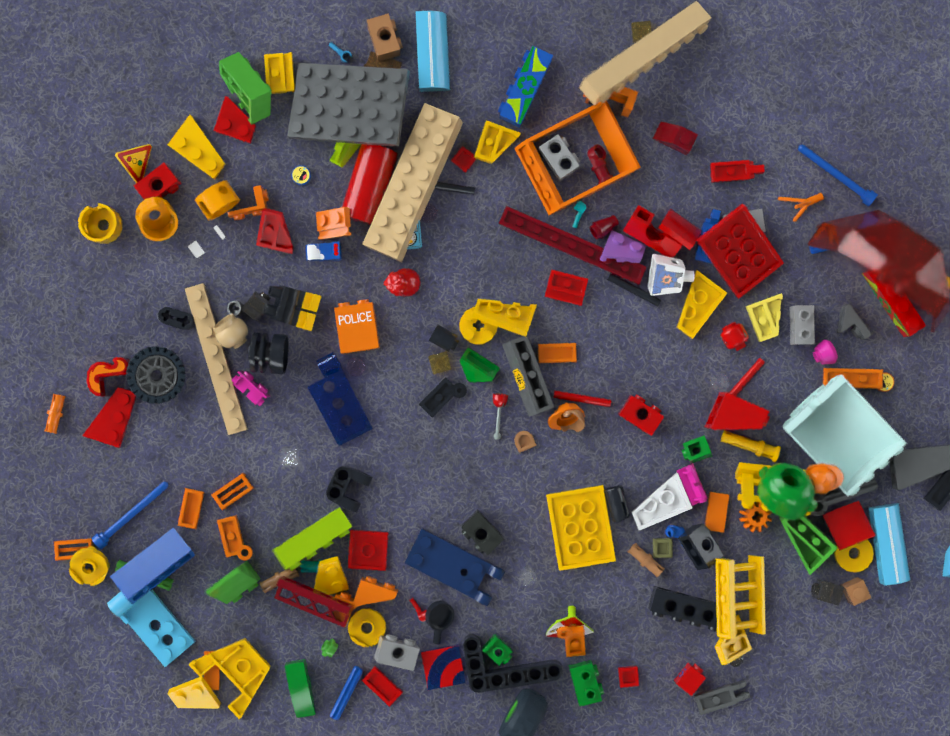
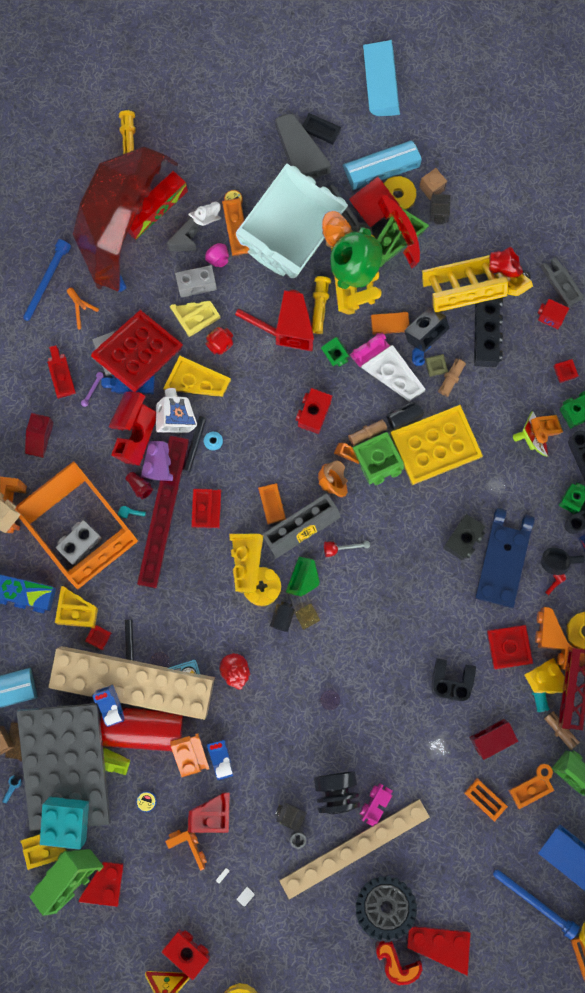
camera: 105 degrees left, 10 degrees down
(159, 228) = (230, 939): light orange piece -> none
(178, 314) = (317, 900): black beam -> none
(190, 508) = (514, 839): orange tile -> none
(196, 148) = (138, 922): yellow wing -> none
(217, 200) = (189, 883): light orange piece -> none
(231, 331) = (323, 838): tan piece -> none
(285, 512) = (494, 739): none -> dark red hinge
(286, 303) = (282, 785): black hips -> none
(296, 95) = (64, 823): none -> teal brick
(312, 538) = (514, 705): lime wedge -> none
(333, 372) = (341, 721): clear blue hinge -> none
(356, 326) = (289, 707): orange brick -> none
(394, 156) = (109, 705): none -> blue leg
(441, 395) = (340, 607): black hinge -> none
(524, 441) = (365, 517): medium nougat tile -> none
(578, 467) = (379, 459): none -> bright green plate
(581, 398) = (311, 470): red piece -> none
(592, 439) = (346, 452): none -> orange piece
(599, 163) = (71, 505): dark red connector -> none
(608, 463) = (367, 432): none -> medium nougat pin
(626, 308) = (215, 446): none -> medium azure plate
(724, 209) = (99, 375): none -> medium lavender hinge
(751, 643) = (505, 262): none -> red hair
(755, 524) = (387, 280): orange gear -> none
(833, 537) = (405, 226): none -> red slope
(871, 350) = (206, 214): none -> white hinge

